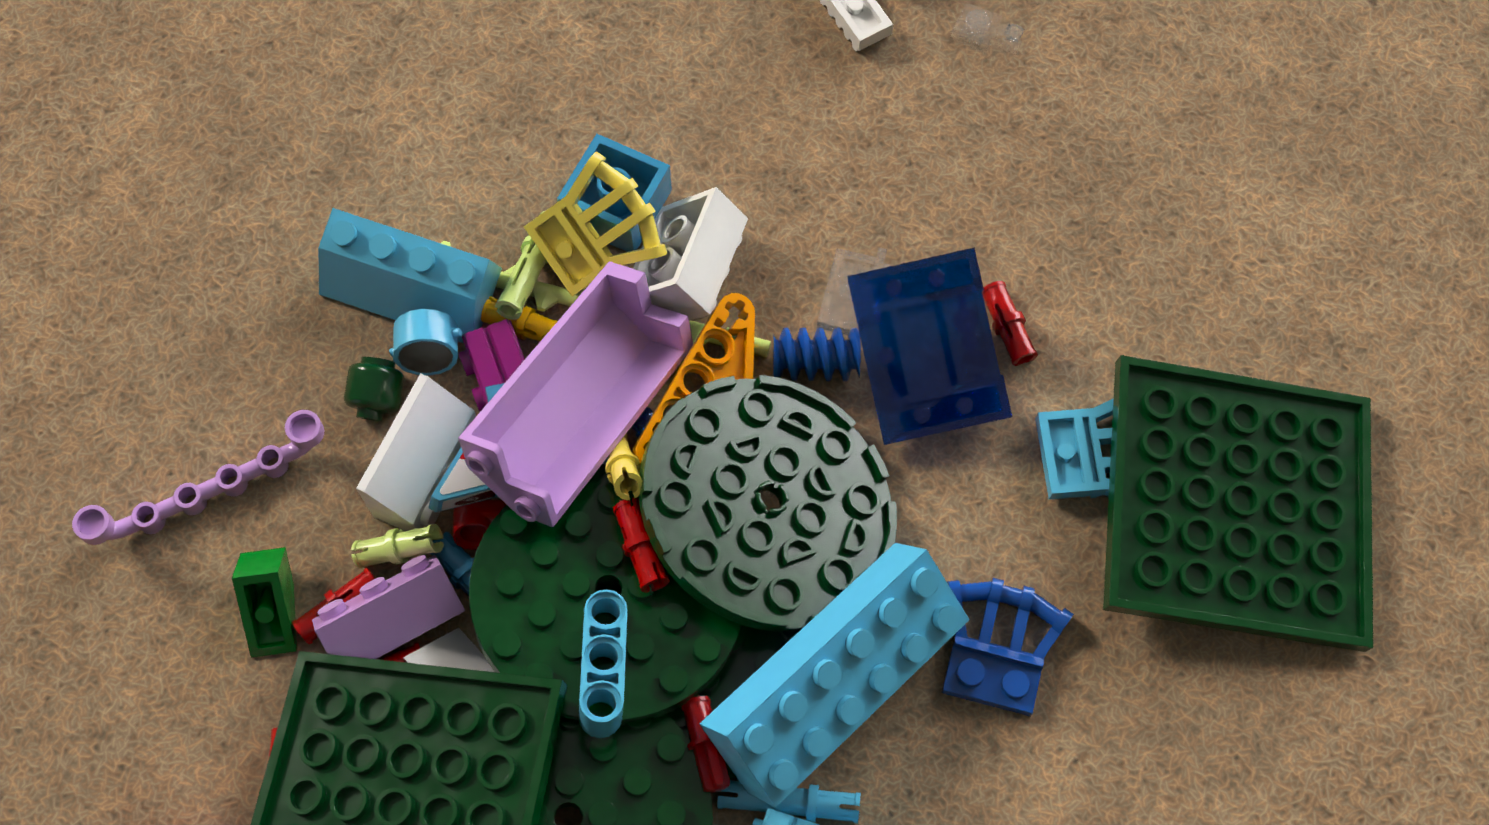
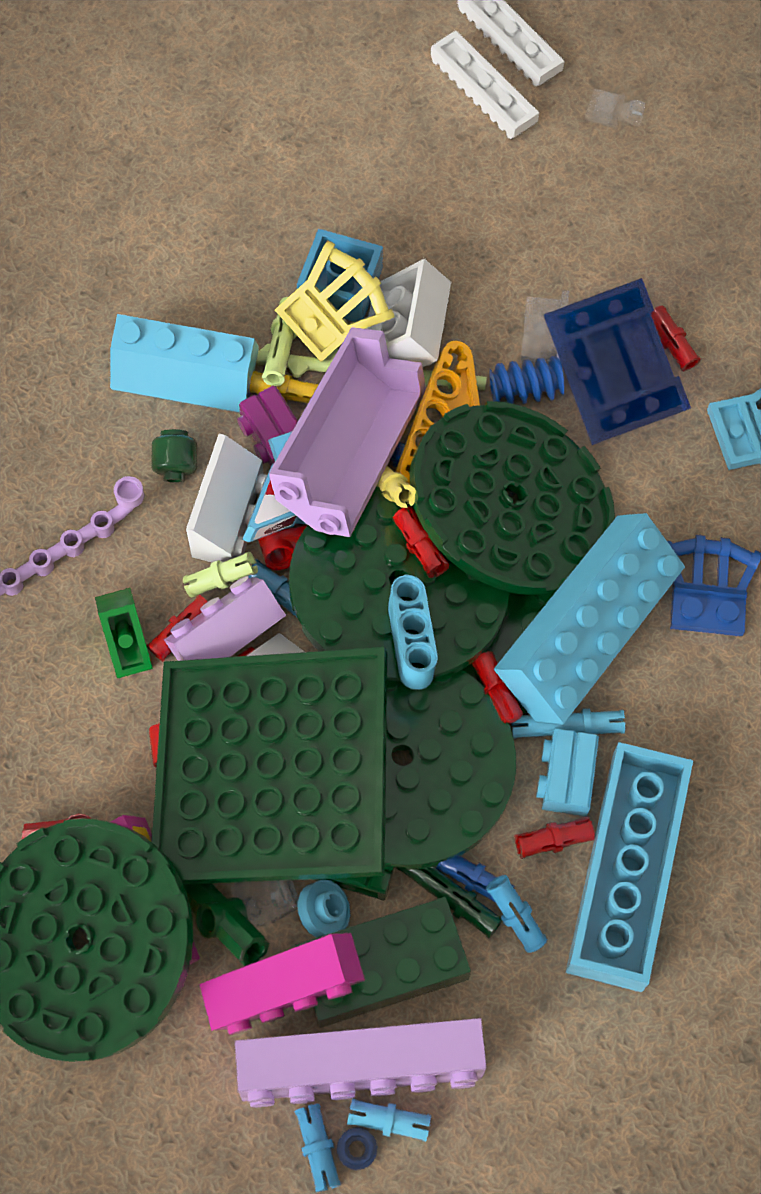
camera: 10 degrees left, 0 degrees up
(425, 342) = (210, 412): medium azure piece -> none

